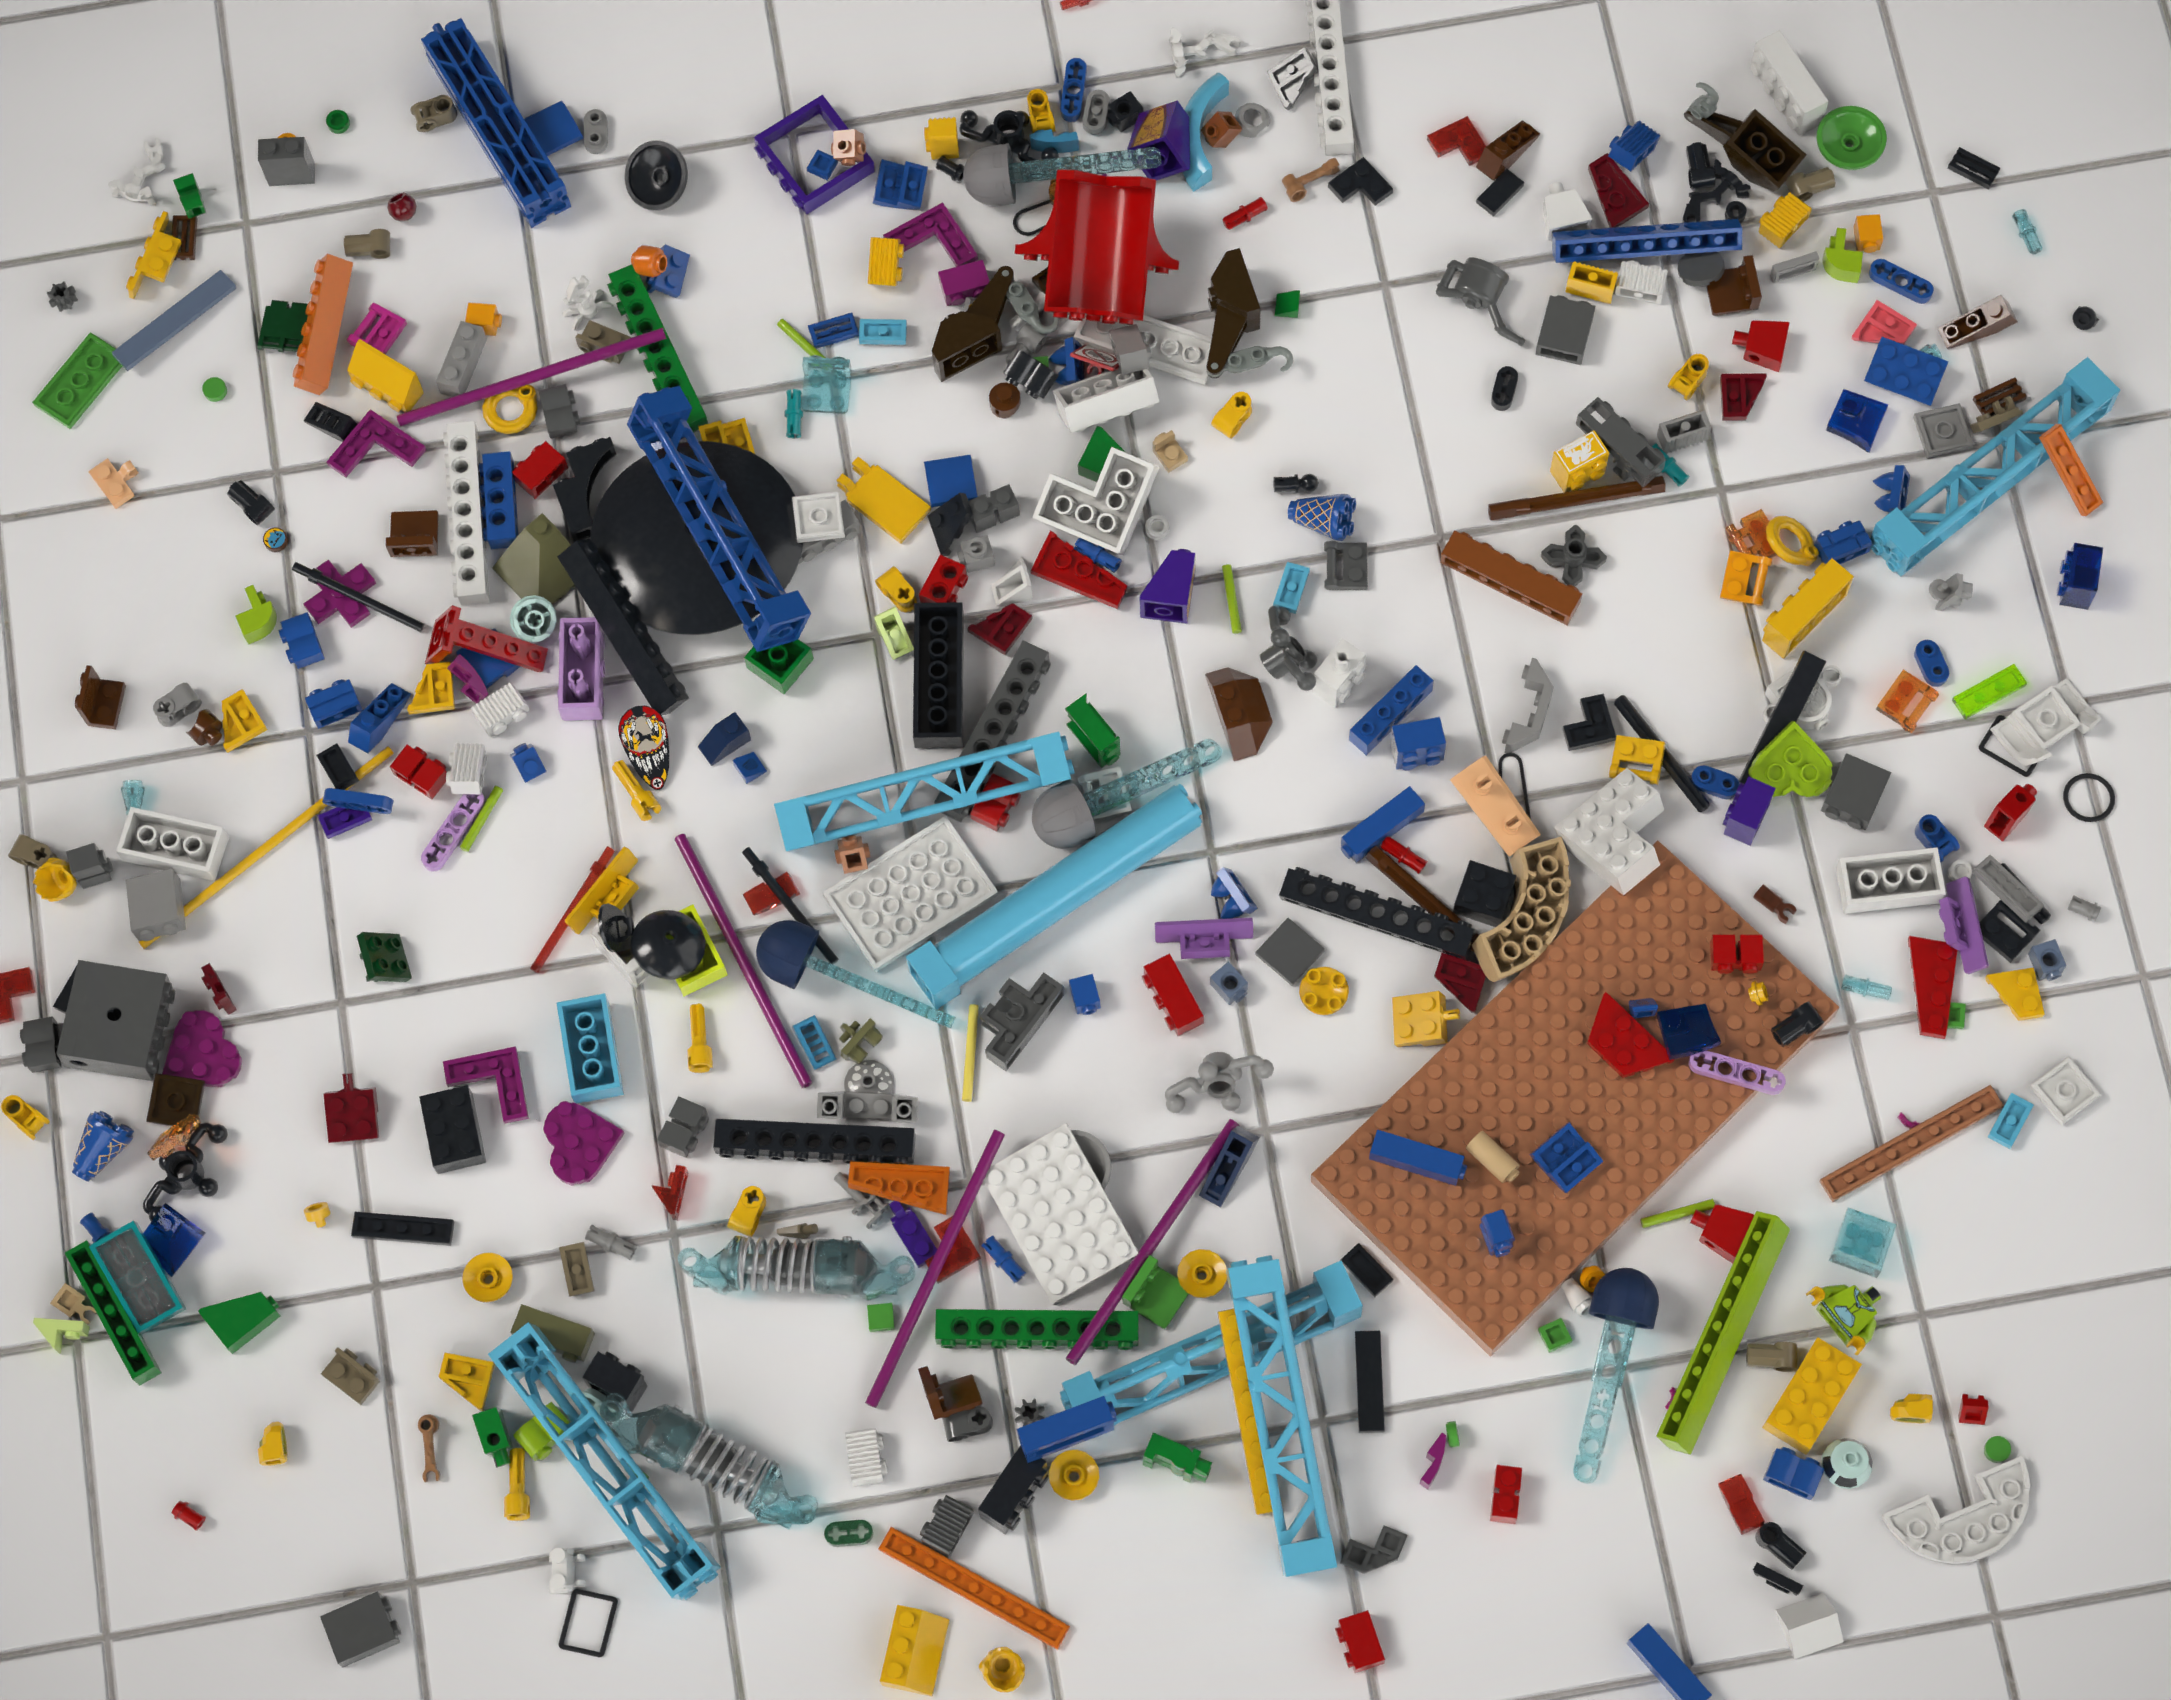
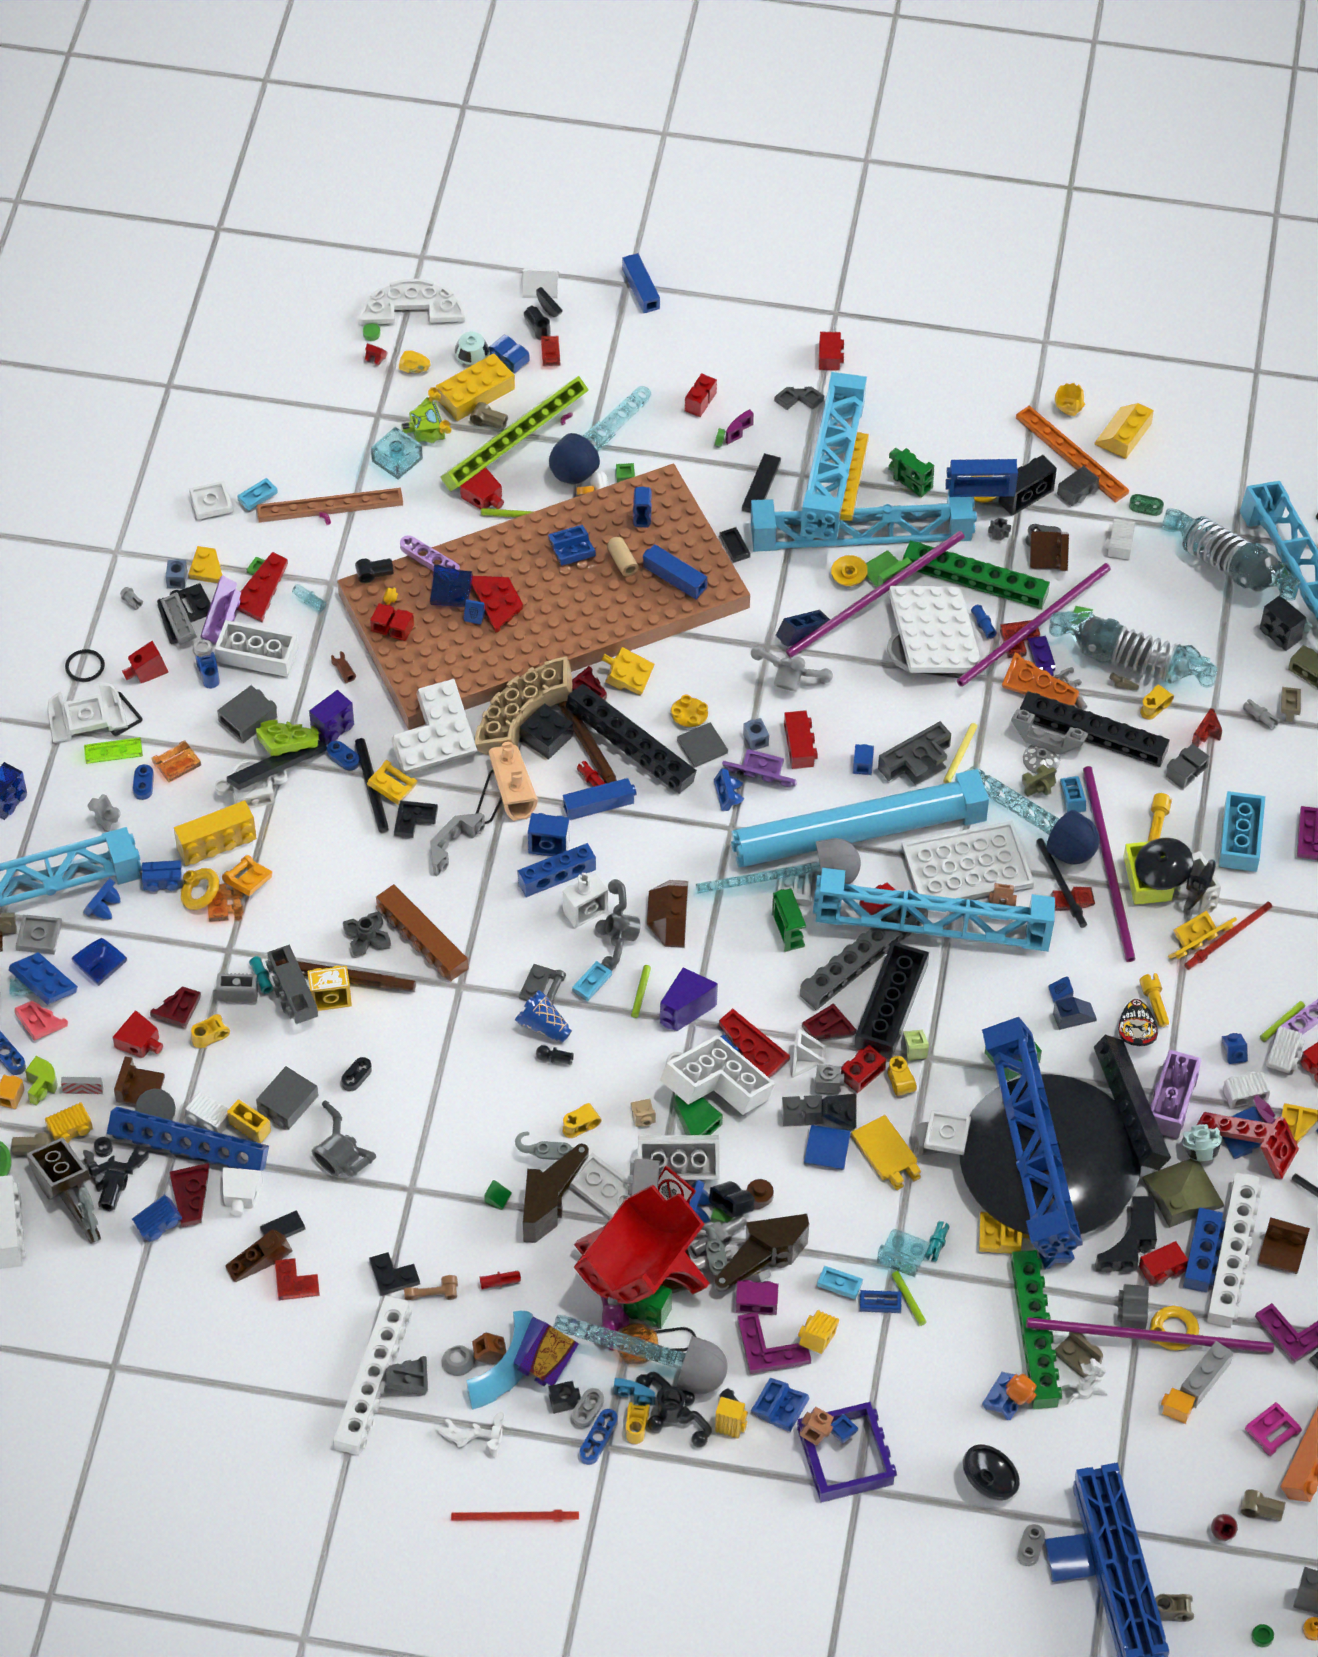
camera: 165 degrees left, 15 degrees down
(384, 377) = (1275, 1378): yellow slope -> none
(579, 1141) = (1267, 778): magenta plate -> none

